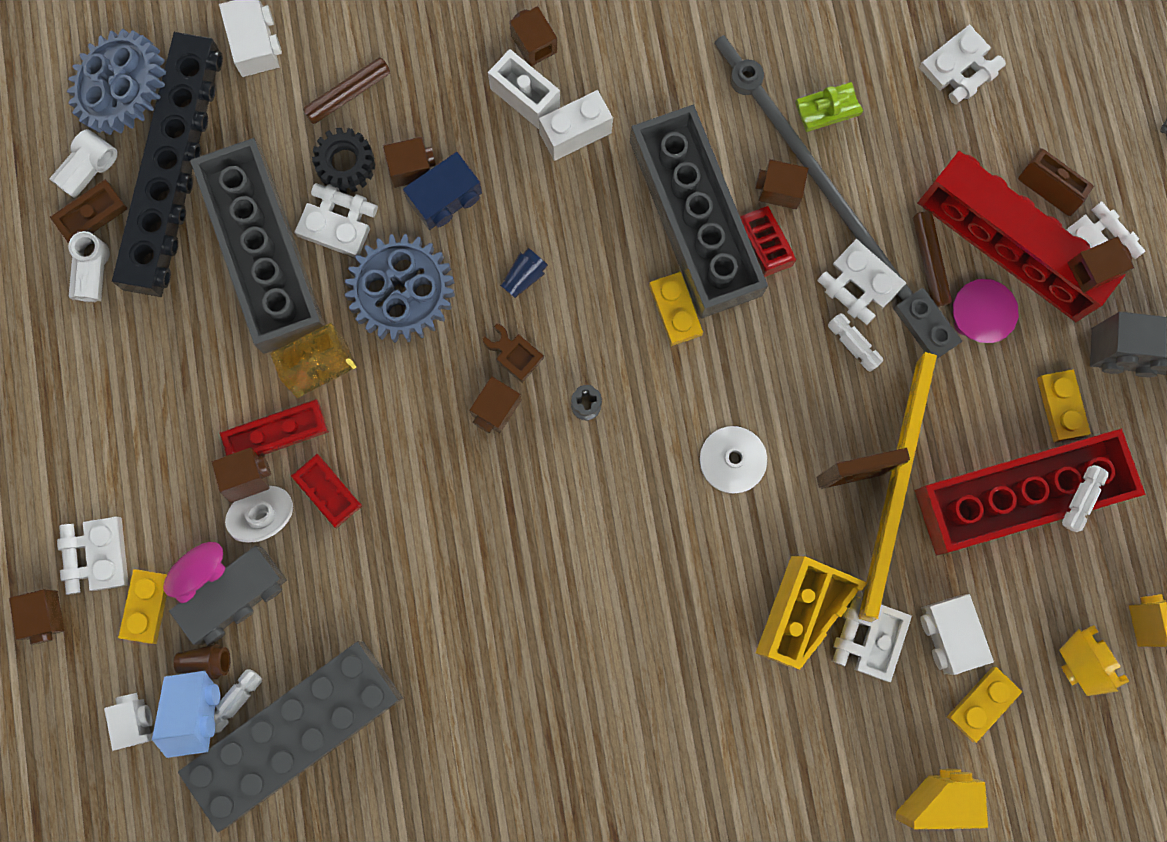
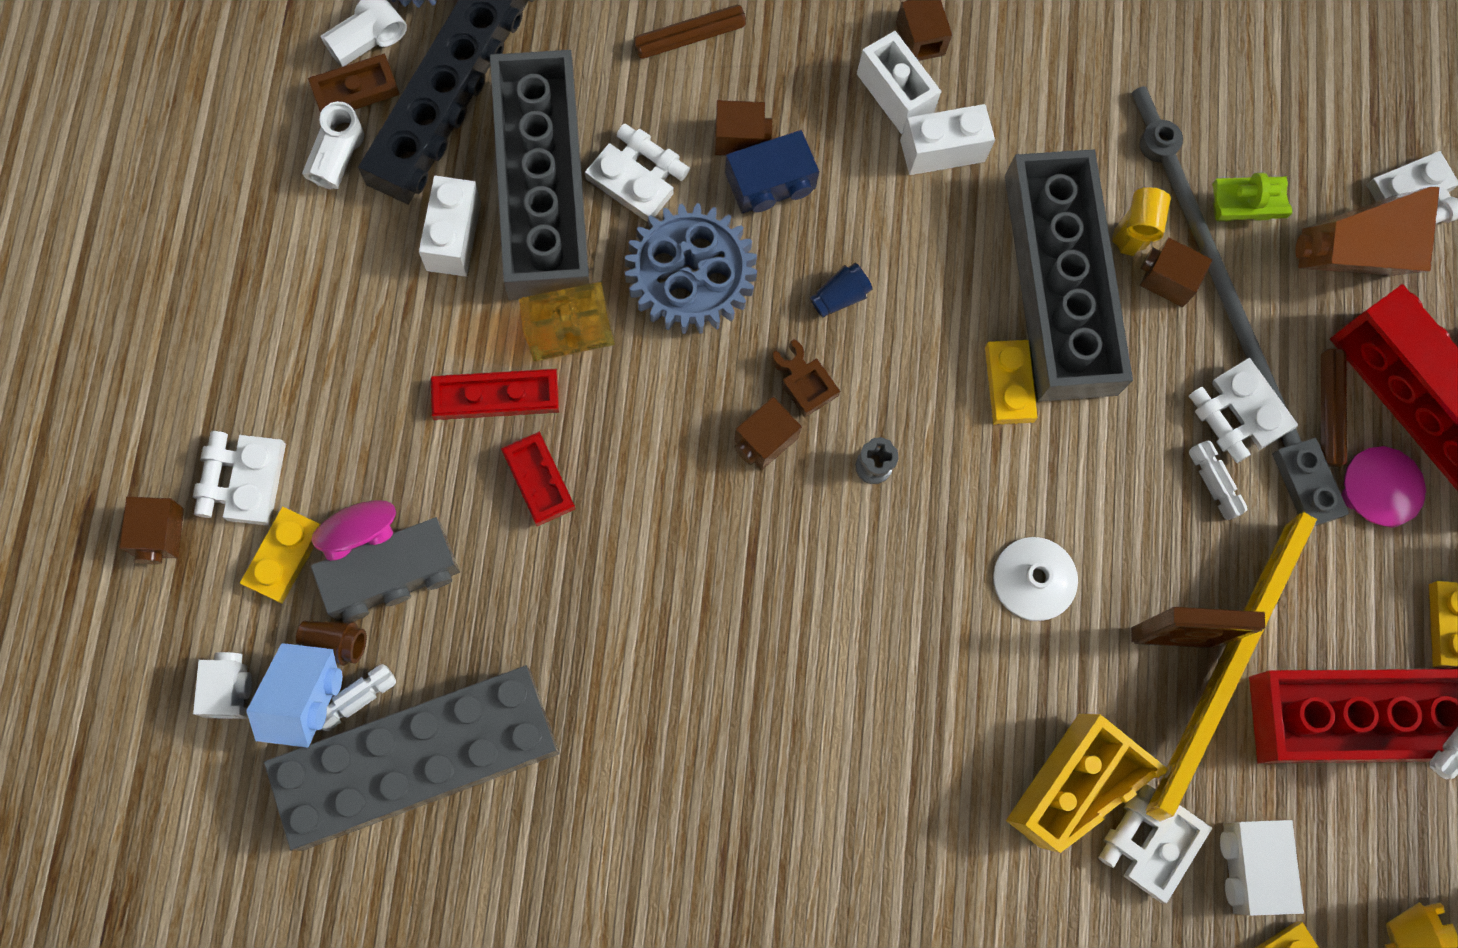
camera: 10 degrees right, 5 degrees down
(199, 307) = (450, 226): none -> white brick
(241, 474) = (443, 431): reddish brown brick -> none
(259, 515) = (450, 482): white dish -> none
(339, 142) = (670, 87): black tyre -> none
(746, 151) = (1143, 221): none -> yellow piece
(787, 256) = (1159, 354): red slope -> none
(931, 114) = (1375, 239): none -> dark orange slope

